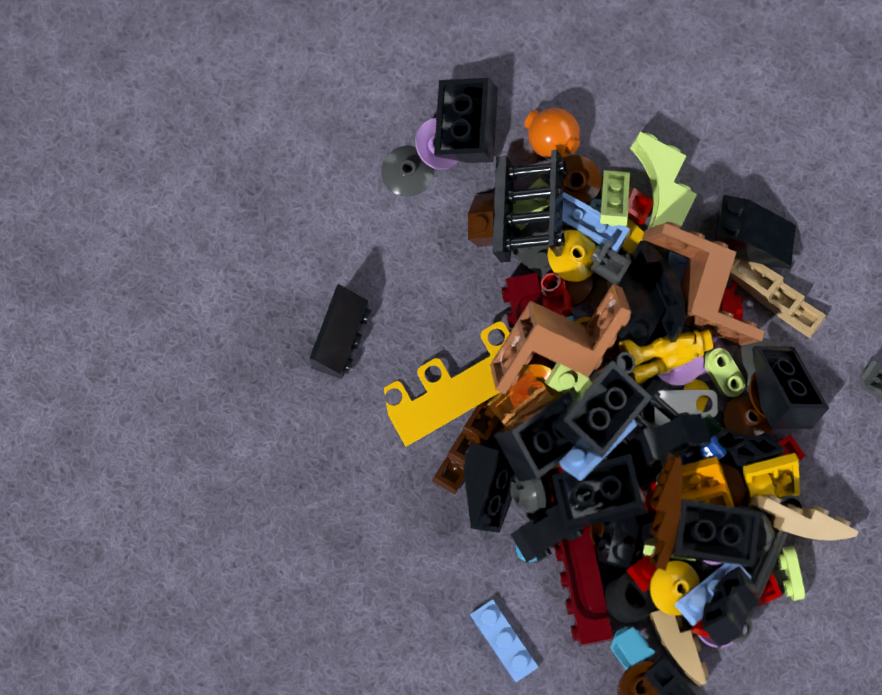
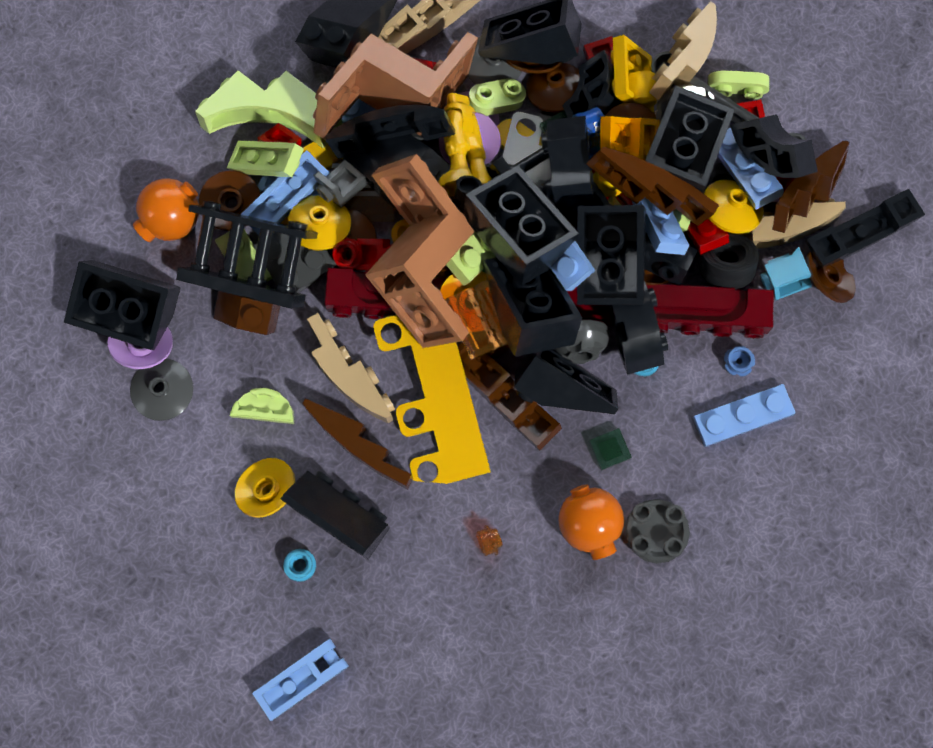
camera: 70 degrees left, 0 degrees up
(205, 339) = (299, 680): none -> light blue plate
(290, 308) = (290, 560): none -> medium azure plate
(349, 264) = (257, 480): none -> yellow dish
(349, 458) = (489, 540): none -> clear orange plate
(384, 534) = (591, 521): none -> orange brick
(390, 590) = (657, 531): none -> dark grey dish
(404, 327) = (349, 436): none -> reddish brown slope
(413, 254) = (263, 405): none -> yellowish green plate
(448, 538) = (610, 449): none -> clear green tile
(449, 319) = (352, 381): none -> tan slope
(543, 632) = (742, 353): none -> medium blue plate
(634, 533) = (664, 230): none -> light blue plate
(722, 660) = (804, 190): none -> reddish brown slope

